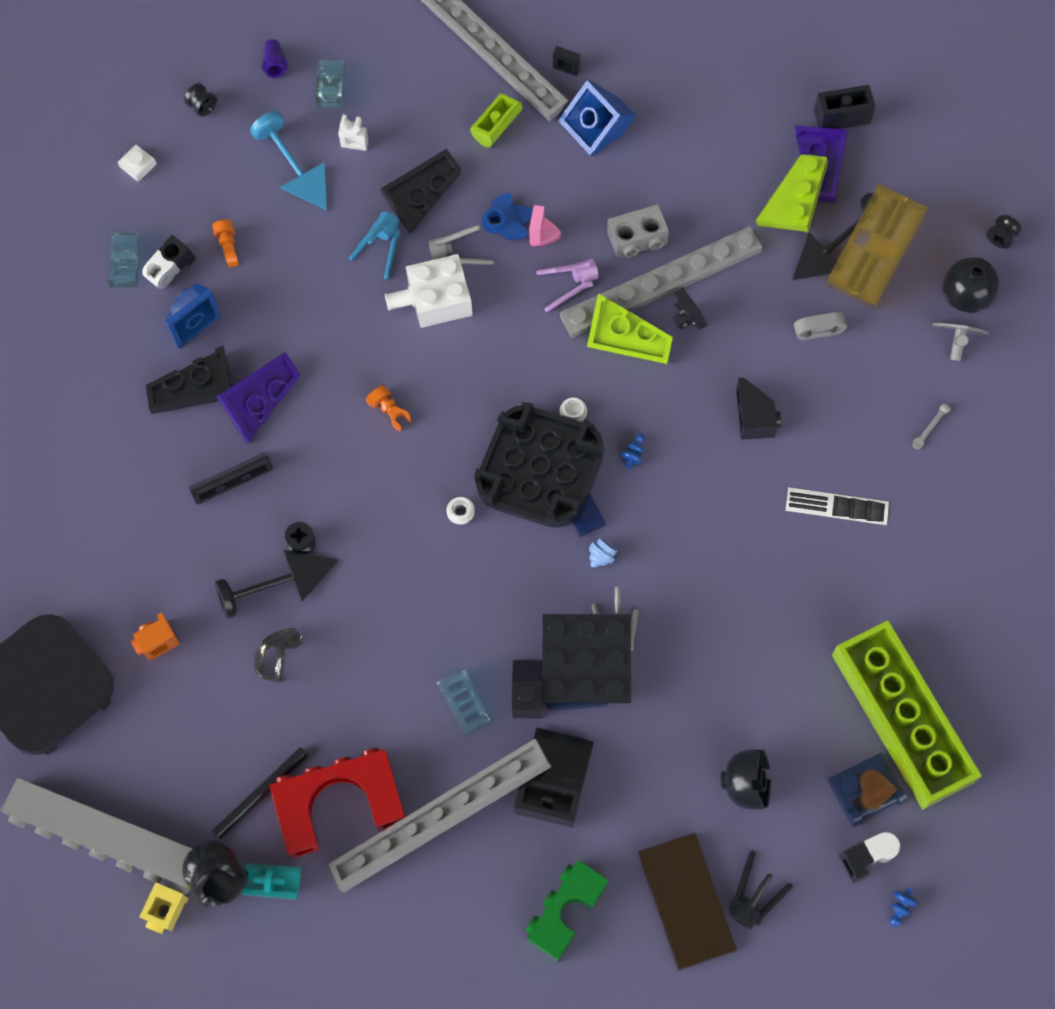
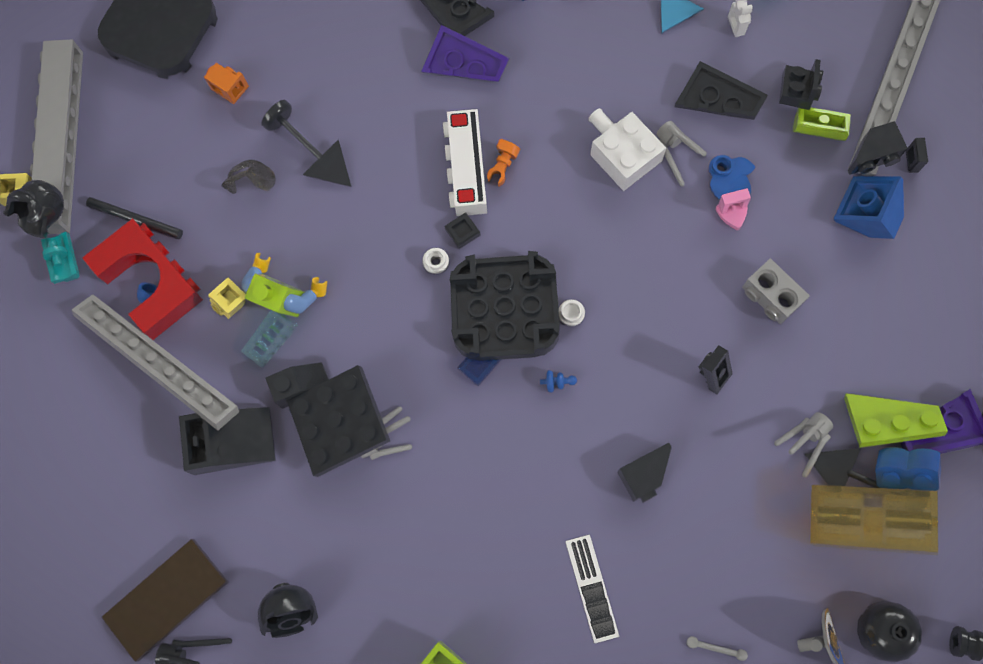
camera: 70 degrees right, 5 degrees up
(231, 478) = (384, 73): black slope -> none
(301, 544) = (357, 153): black wheel -> none
(356, 805) = (145, 290): none -> blue hinge
(373, 438) = (466, 162): none -> white brick
(384, 229) = (666, 83): dark azure plant -> none
(409, 727) = (227, 298): none -> light yellow brick
(423, 672) = (276, 294): none -> torso
(440, 474) = (462, 230): none -> black tile
(451, 117) = (801, 85): none -> black bracket
(547, 86) = (879, 147): none -> black slope
(579, 886) = (95, 495): green arch -> none
(582, 272) = (709, 262): lavender plant -> none
(602, 553) = (448, 394): light blue plate -> none
(625, 333) = (666, 325): lime wing -> none
(667, 278) = (740, 336): light grey plate -> none
(778, 258) = (814, 429): none -> light grey plant
(820, 326) = (766, 498): light grey beam -> none
(846, 200) = (908, 469): none -> blue brick

